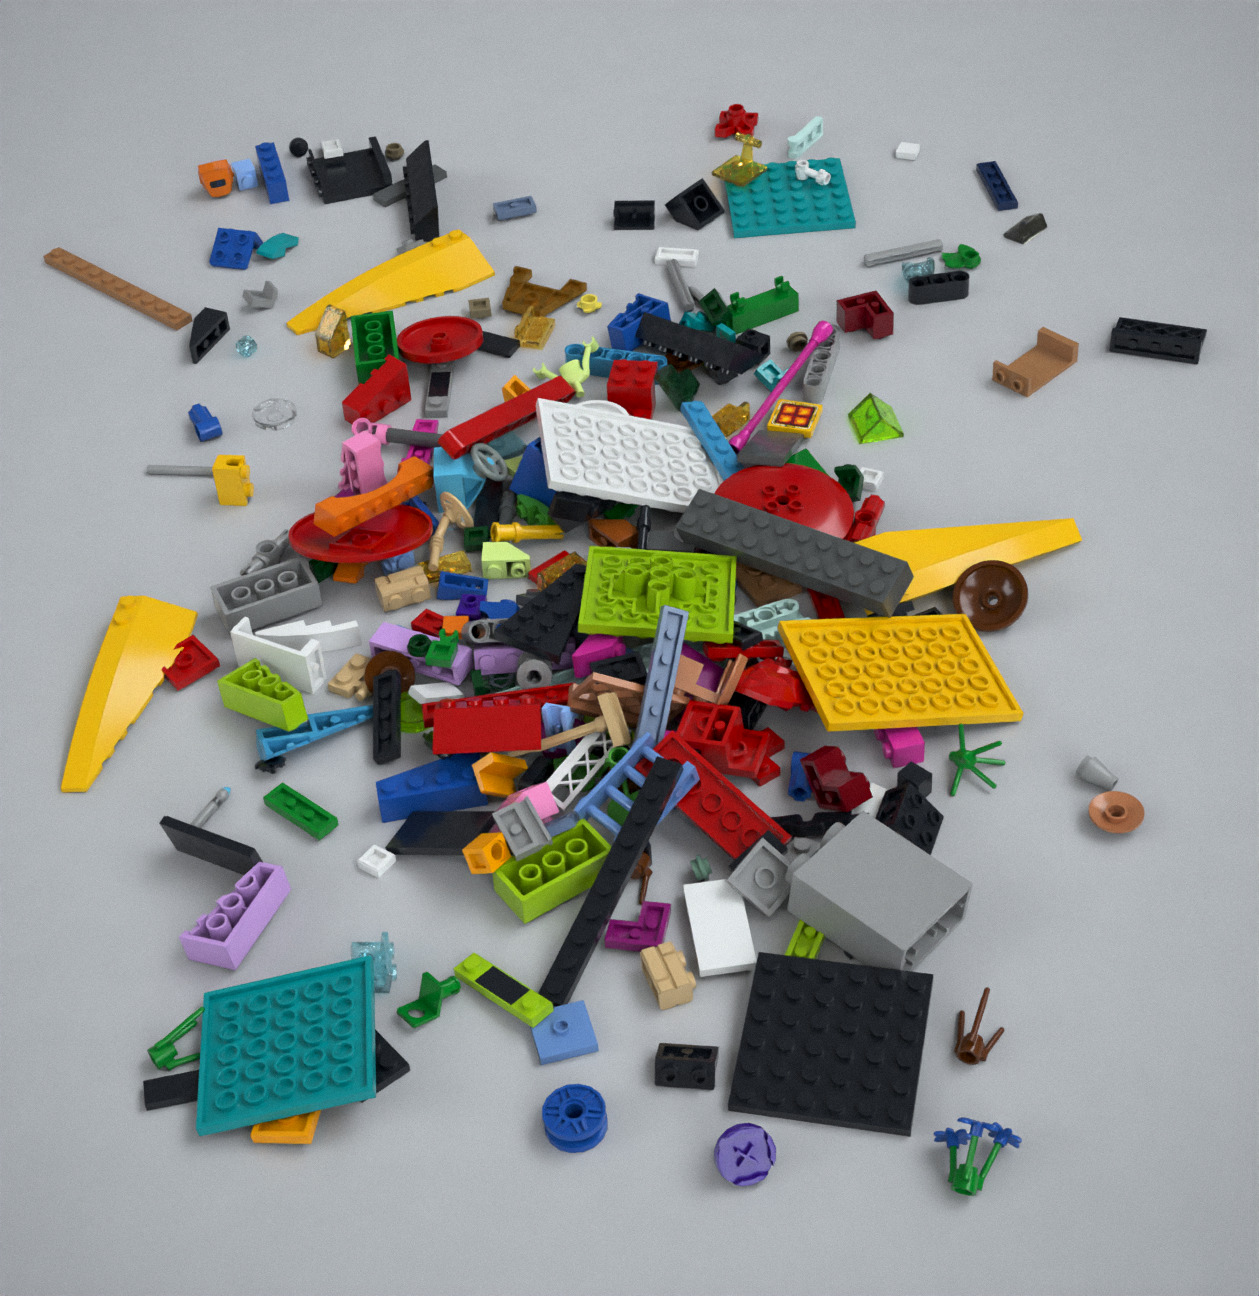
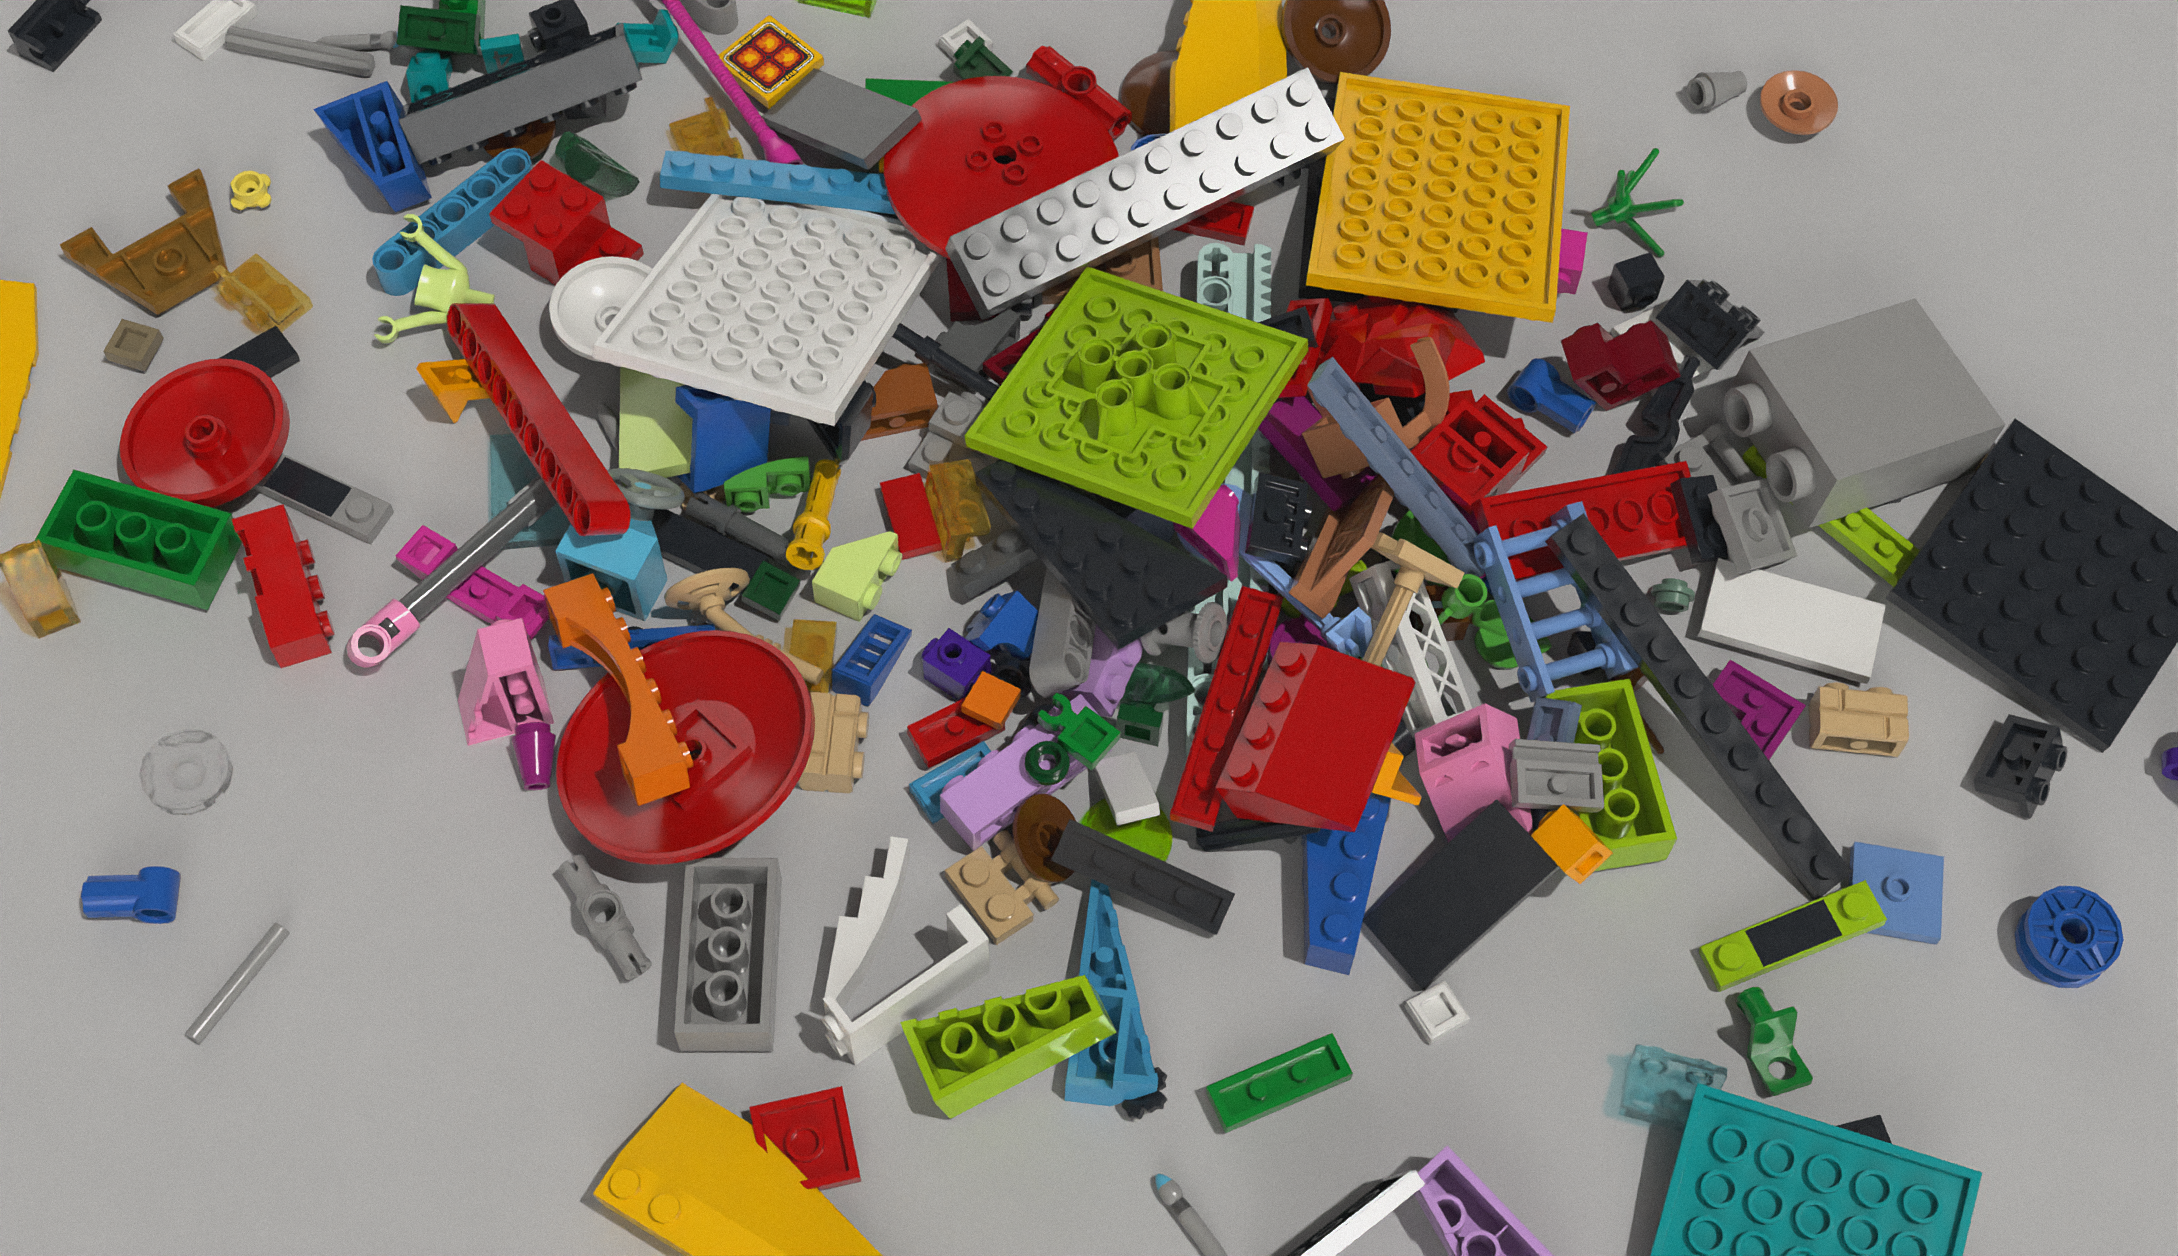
camera: 70 degrees left, 20 degrees up
(232, 480) = (371, 899): yellow brick -> none
(971, 1048) = (2119, 439): reddish brown plant -> none

